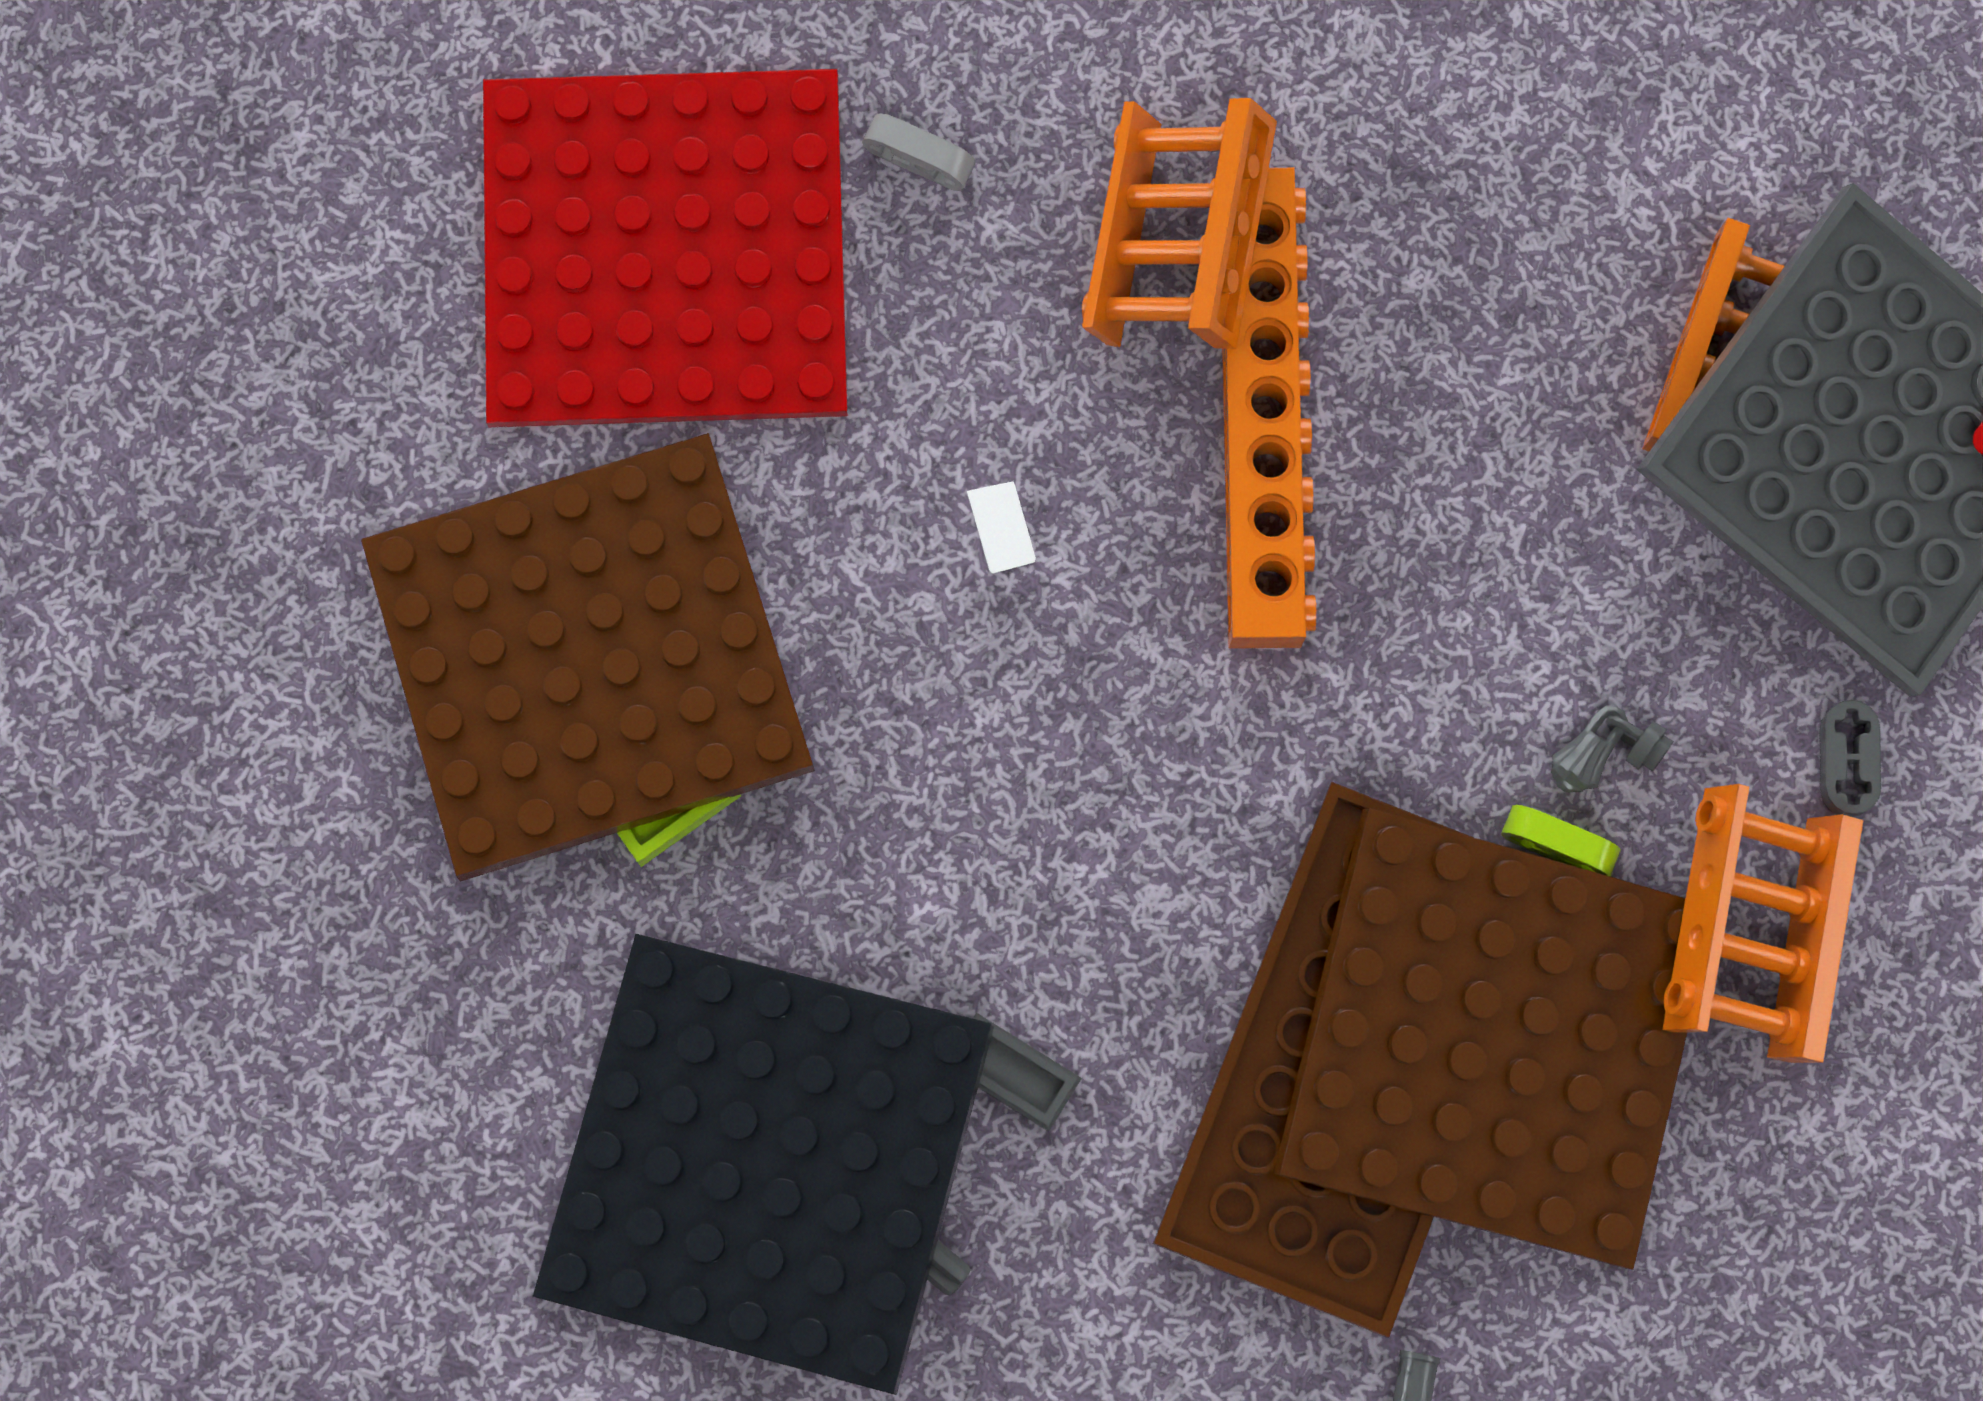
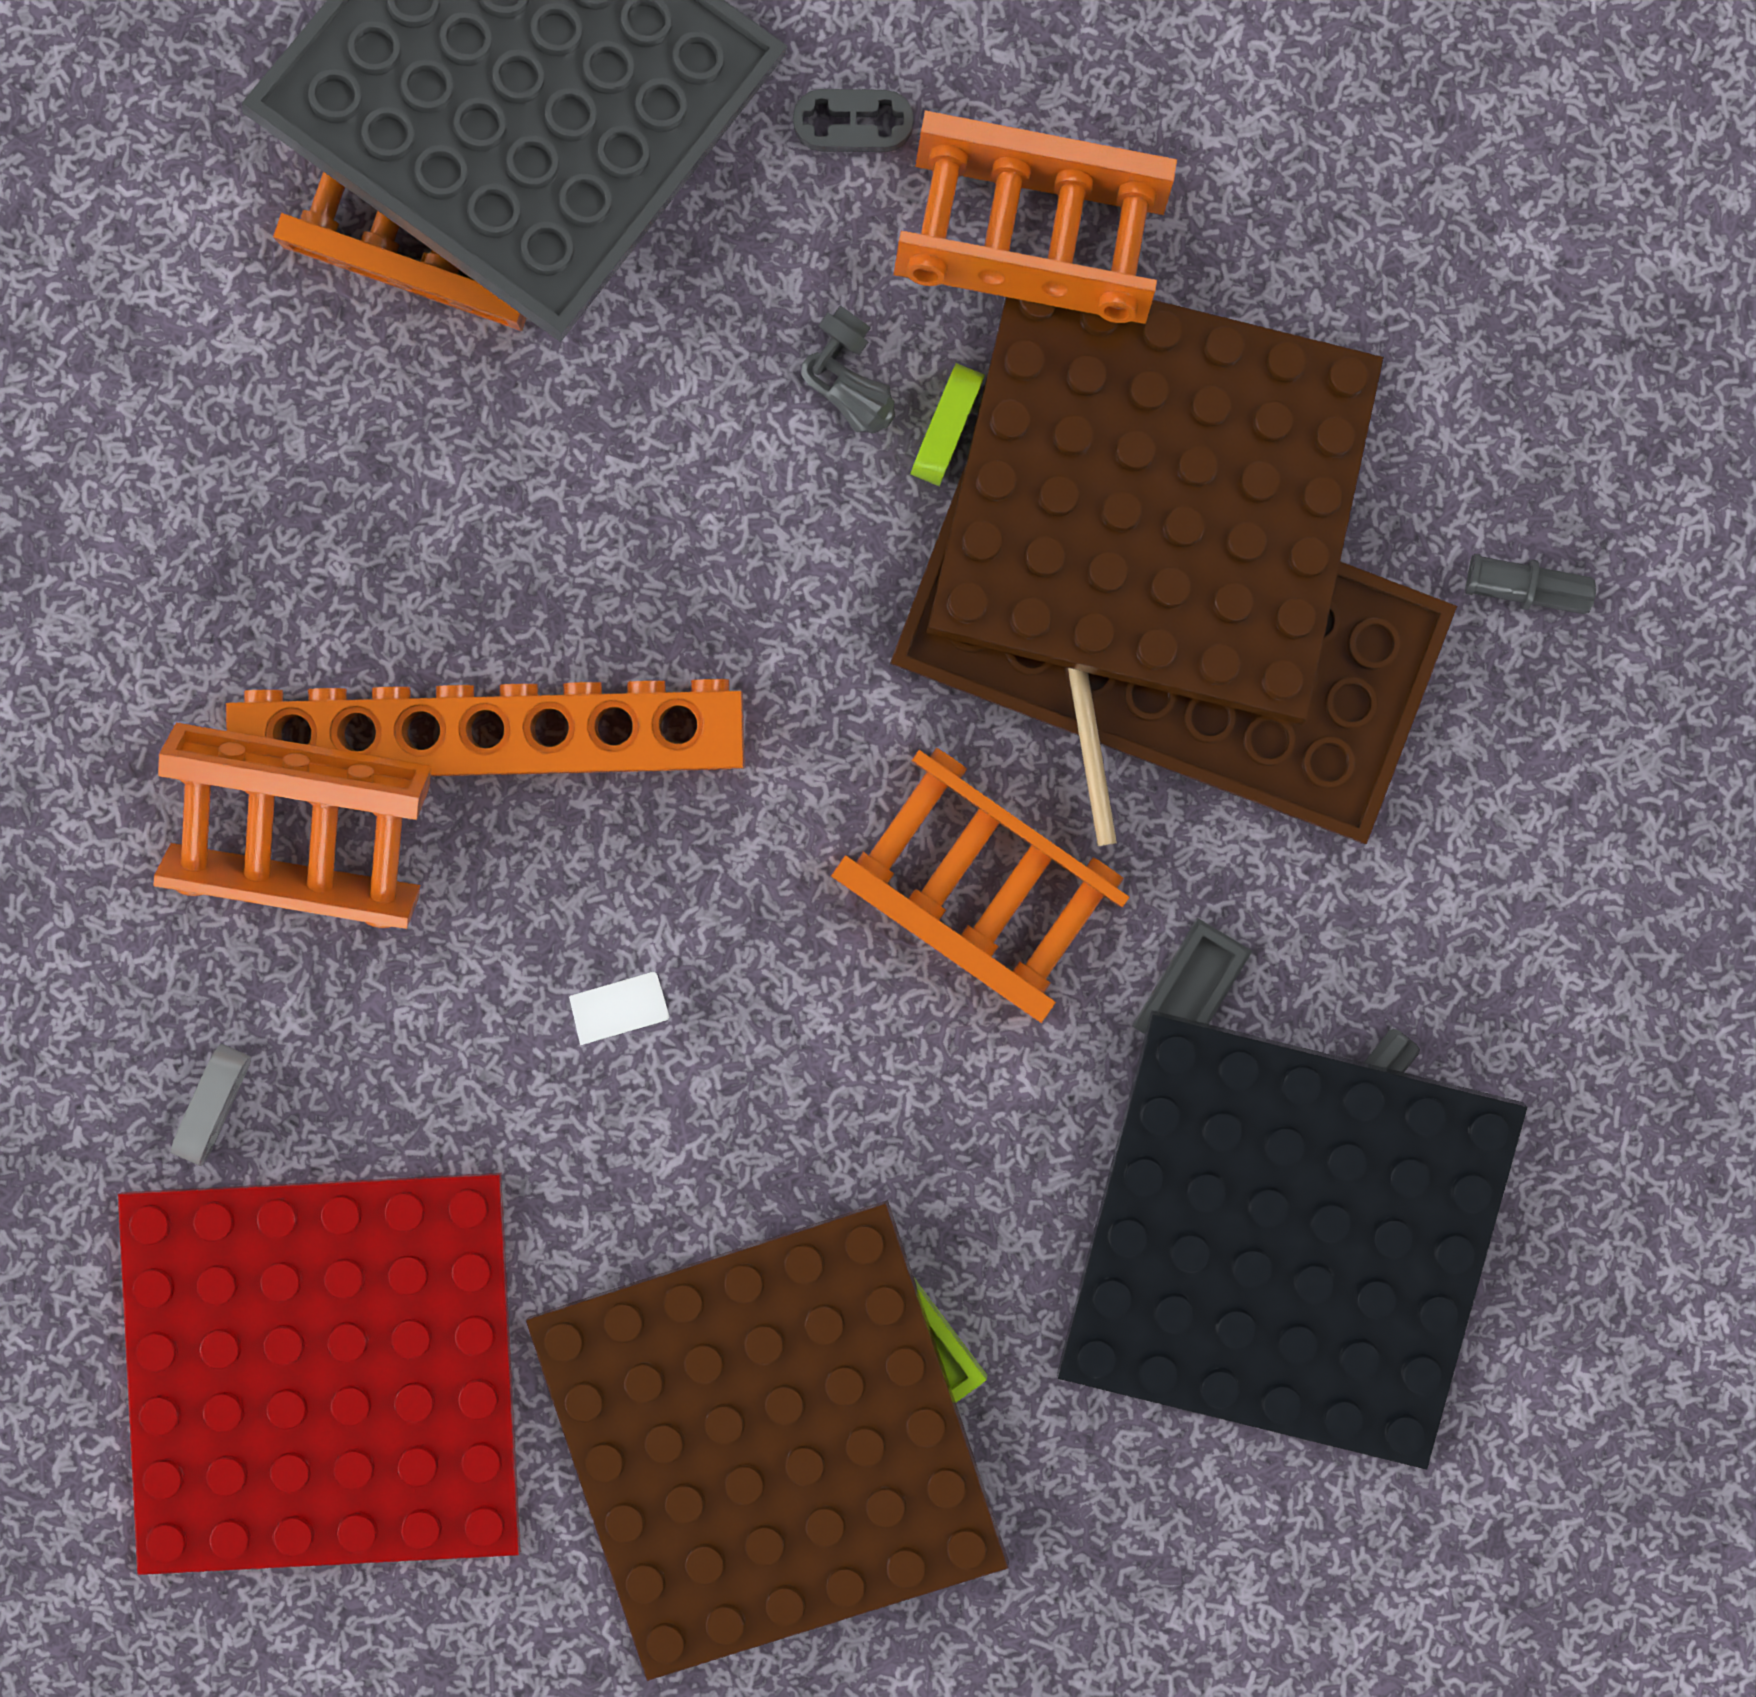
camera: 90 degrees left, 10 degrees up
(1094, 811) = (976, 945): none -> orange fence
(1240, 972) = (1092, 757): none -> tan axle

